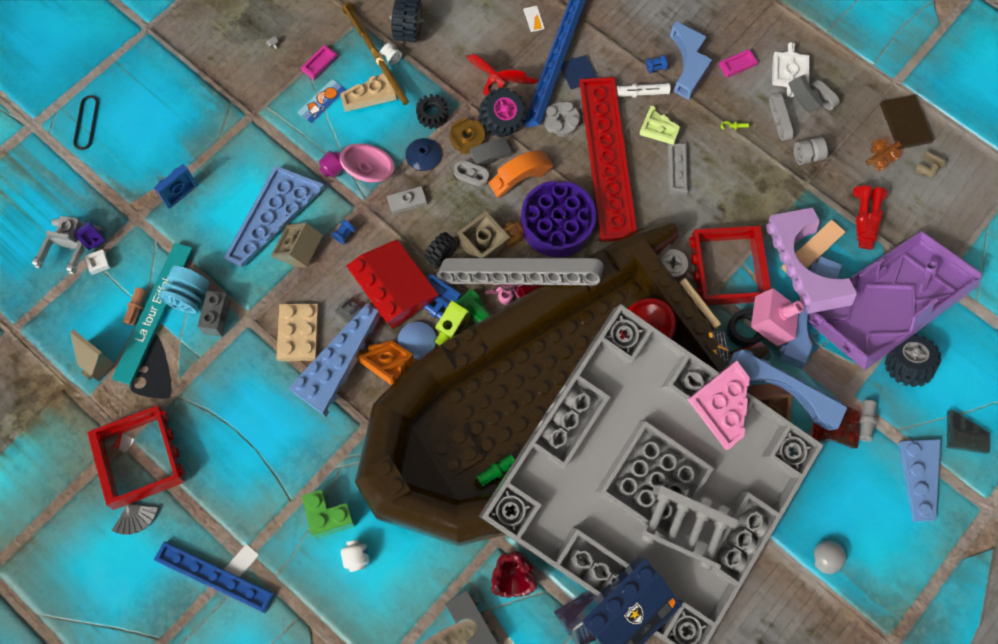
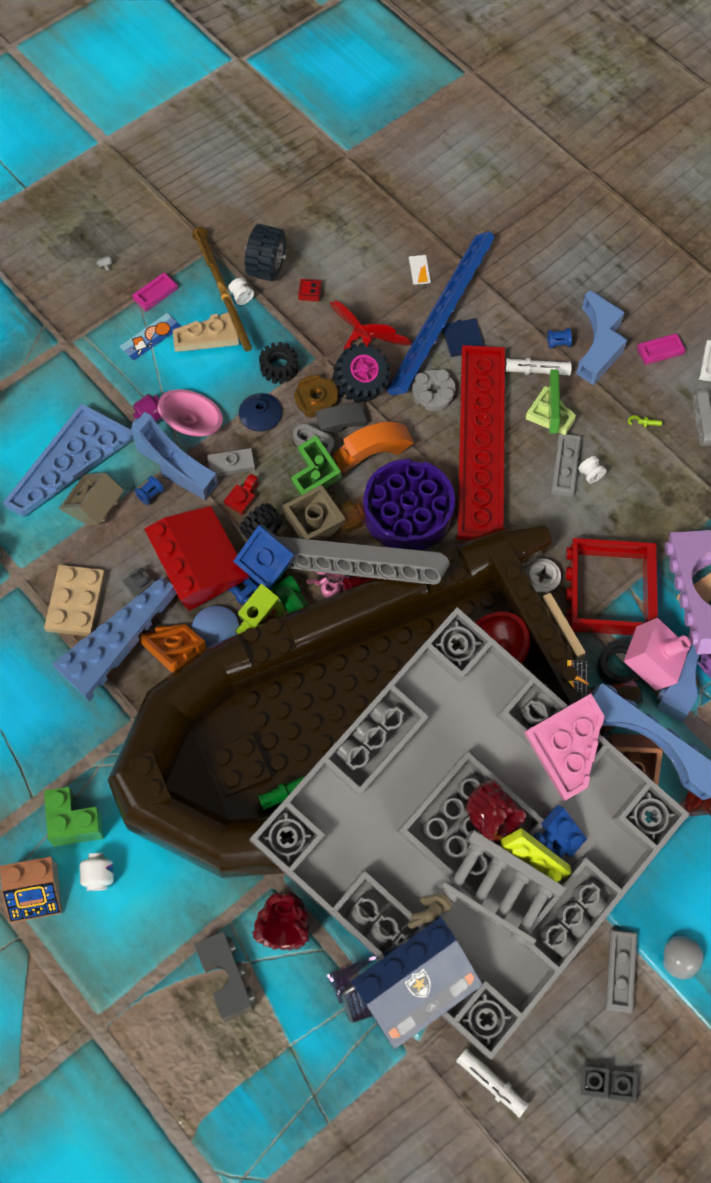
camera: 10 degrees right, 5 degrees down
(303, 577) = (31, 889): none -> slope
(360, 206) = (172, 460): none -> medium blue arch
(420, 228) = (241, 497): none -> red plate
(447, 46) = (309, 290): none -> red tile
(450, 277) = (265, 557): none -> blue plate
(482, 197) = (319, 469): none -> bright green brick
(637, 549) = (435, 905): none -> dark tan piece
(661, 117) = (554, 401): none -> bright green tile
(673, 467) = (494, 811): none -> dark red hair
(699, 170) = (592, 469): none -> white wheel
(710, 496) = (536, 855): none -> neon yellow plate
(726, 473) = (563, 831): none -> blue plate
(783, 575) = (621, 971): none -> light grey tile

